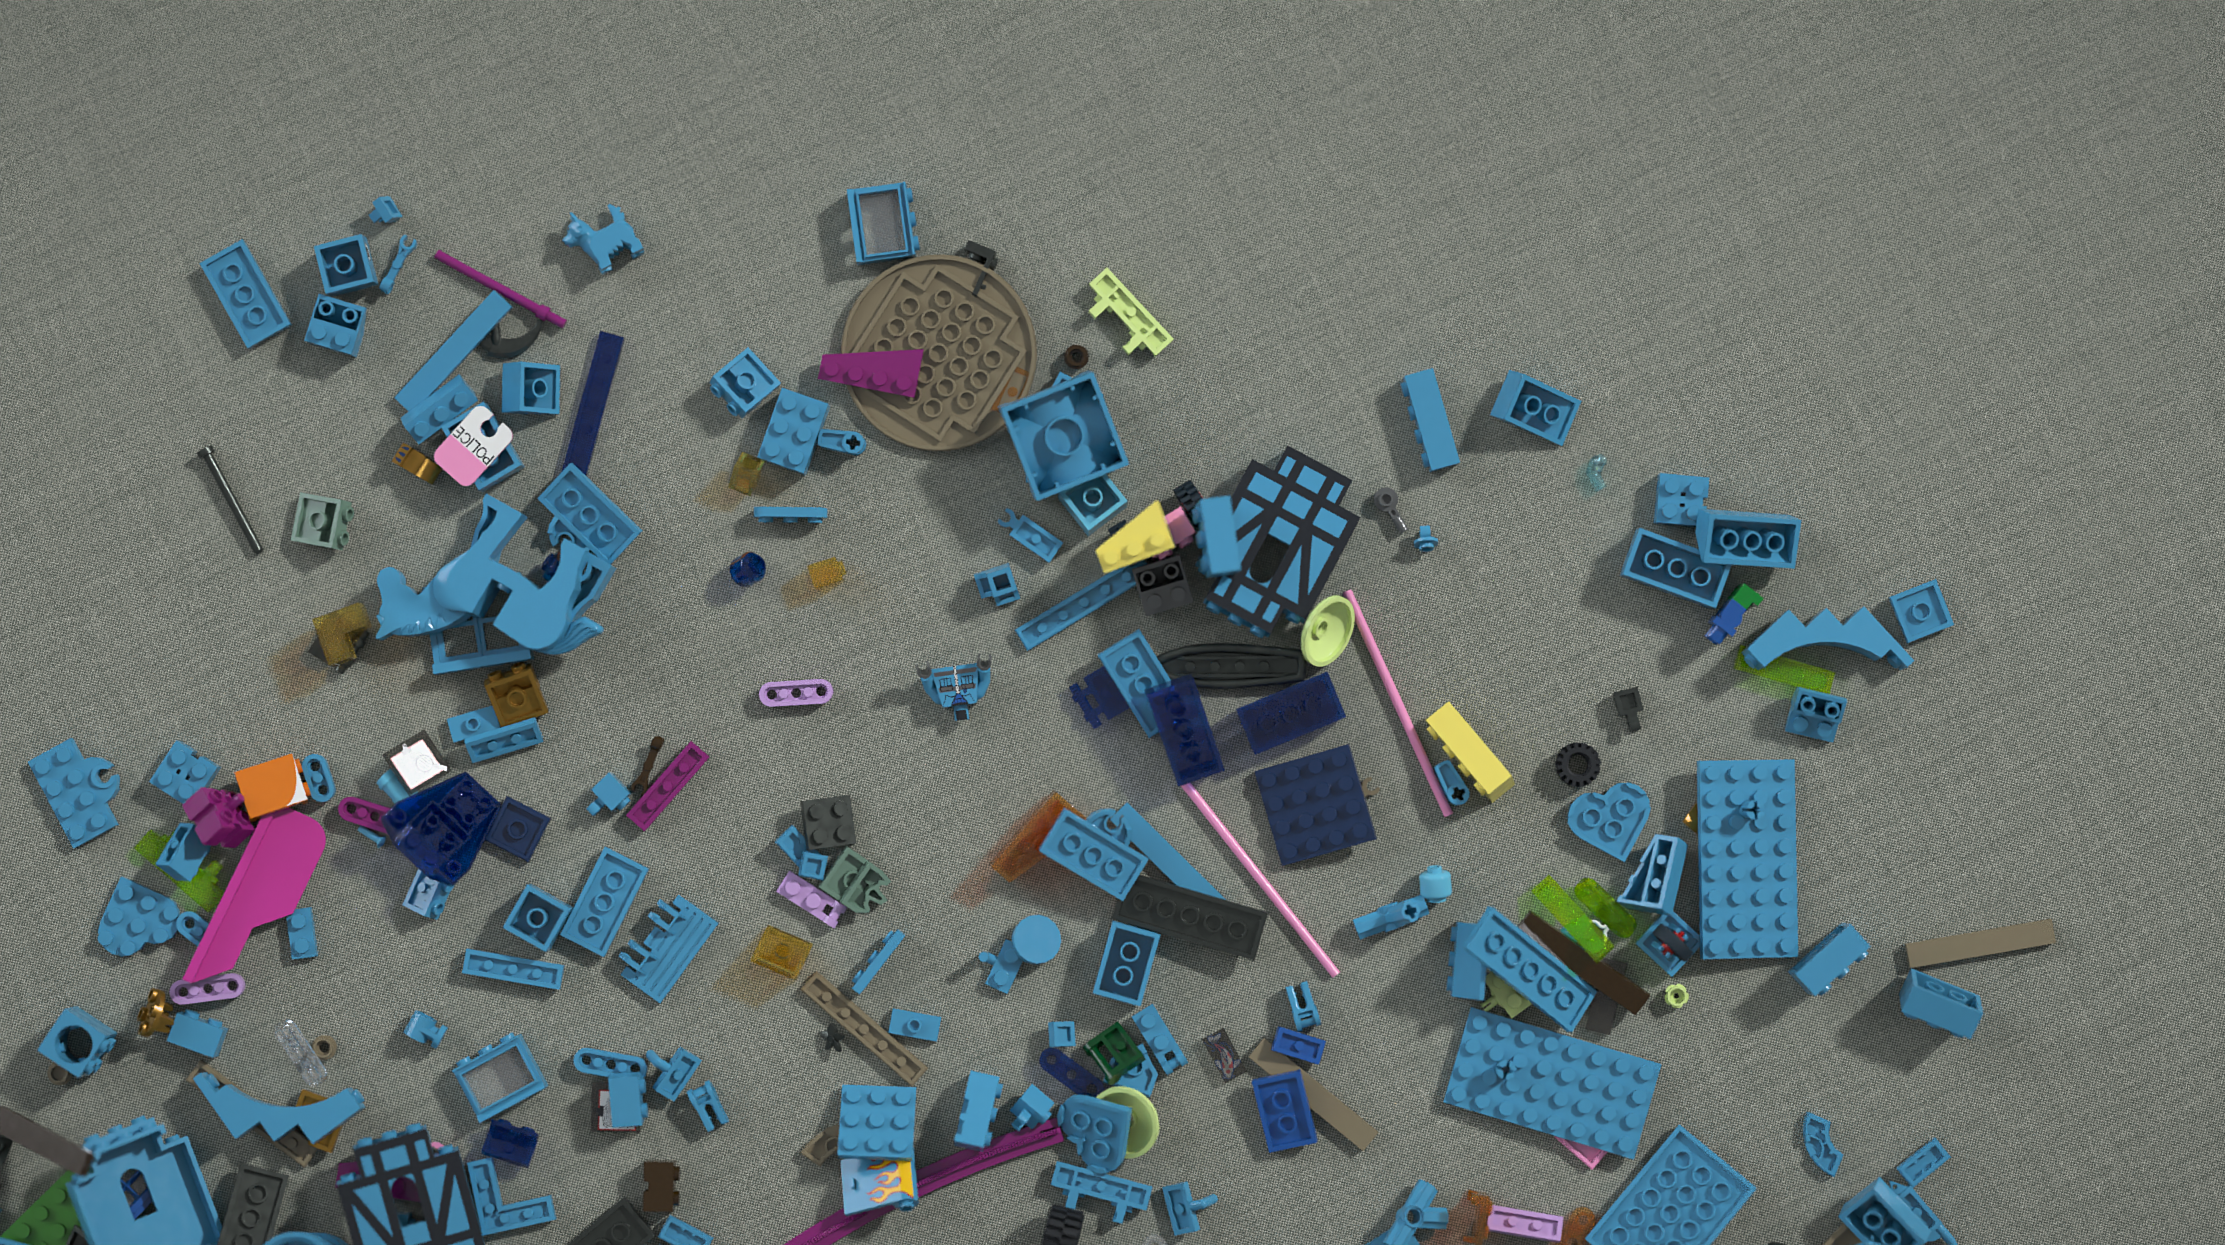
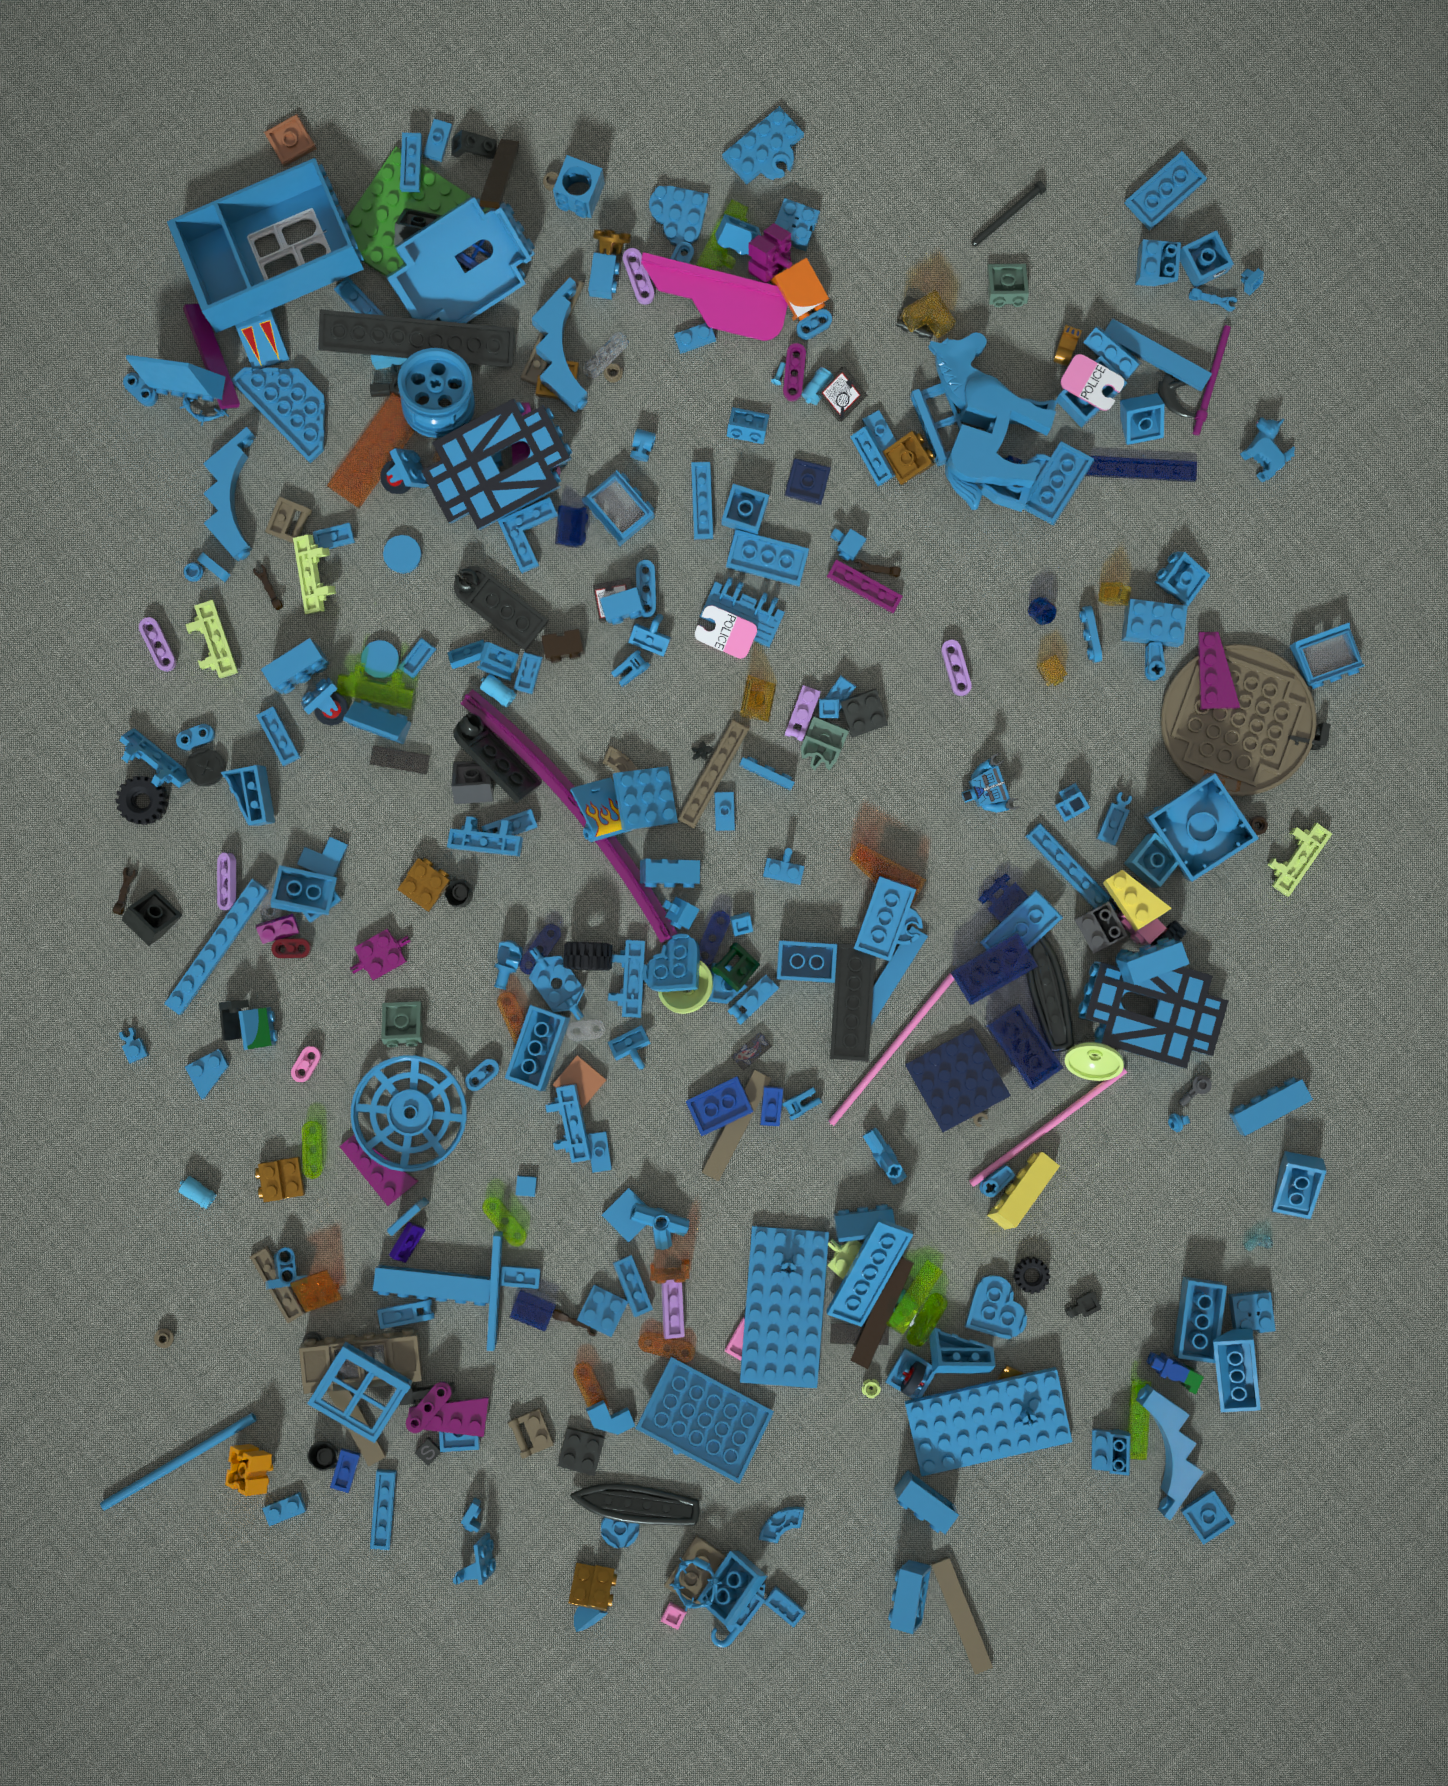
camera: 75 degrees right, 0 degrees up
(443, 827) = (798, 422): clear blue wedge -> none
(690, 968) = (731, 634): none -> piece
(1036, 939) = (809, 889): dark azure tile -> none
(1435, 884) = (916, 1185): medium azure head -> none

